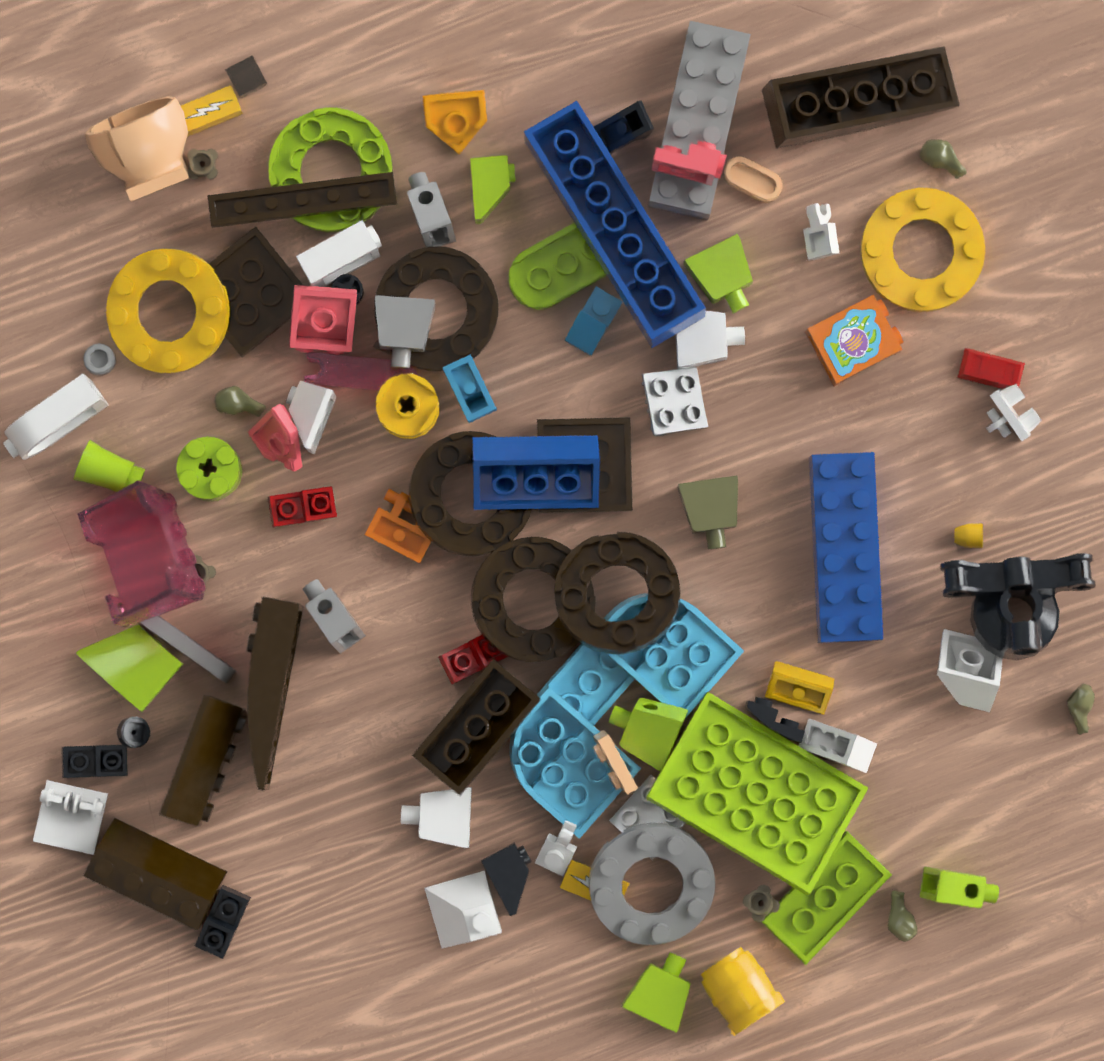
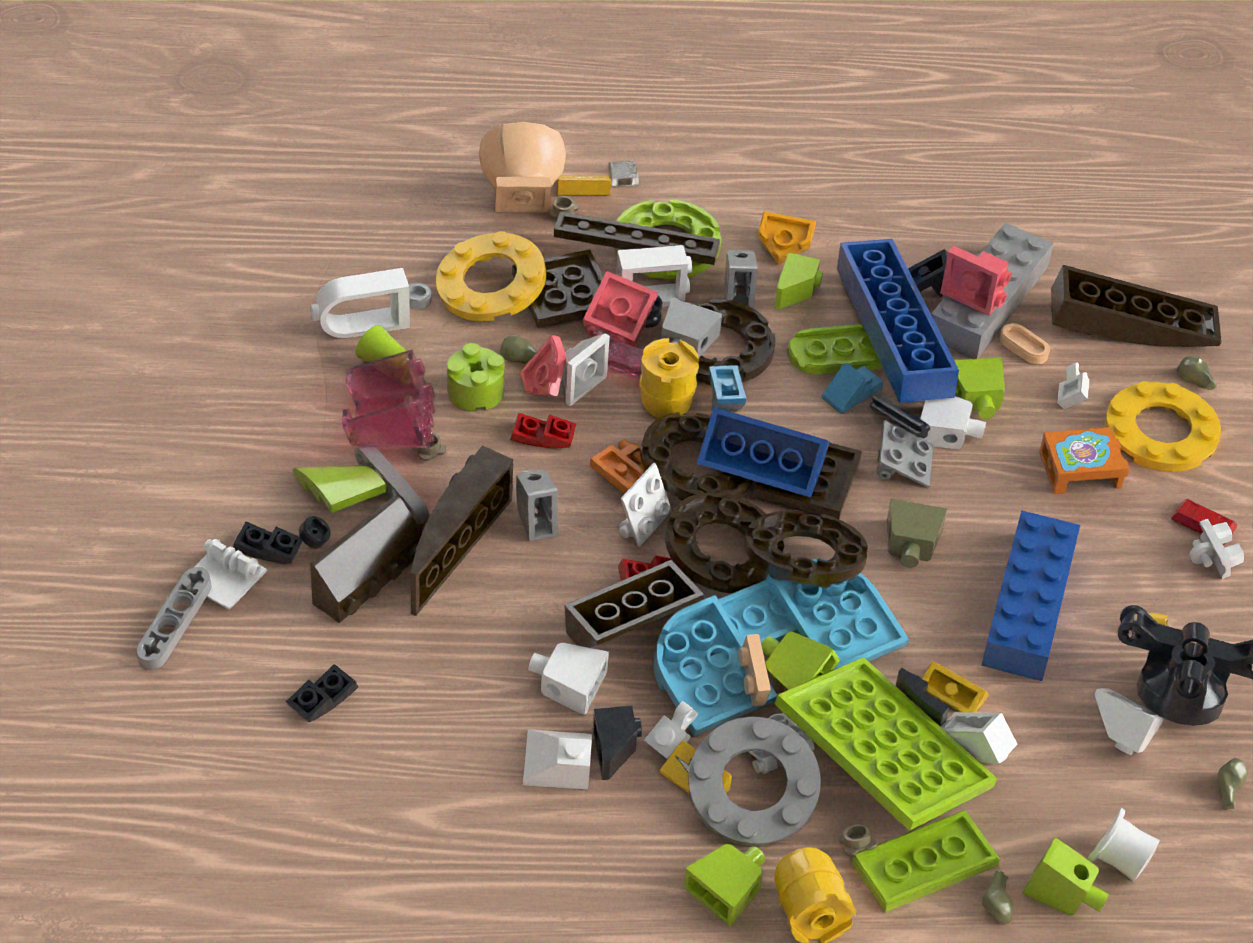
camera: 20 degrees right, 40 degrees down
(46, 889) = (171, 616): none -> light grey beam
(155, 874) = (274, 637): dark brown slope -> none
(443, 584) = (644, 506): none -> white hinge
(655, 357) = (900, 416): none -> black axle
(1001, 831) = (1125, 847): none -> white piece

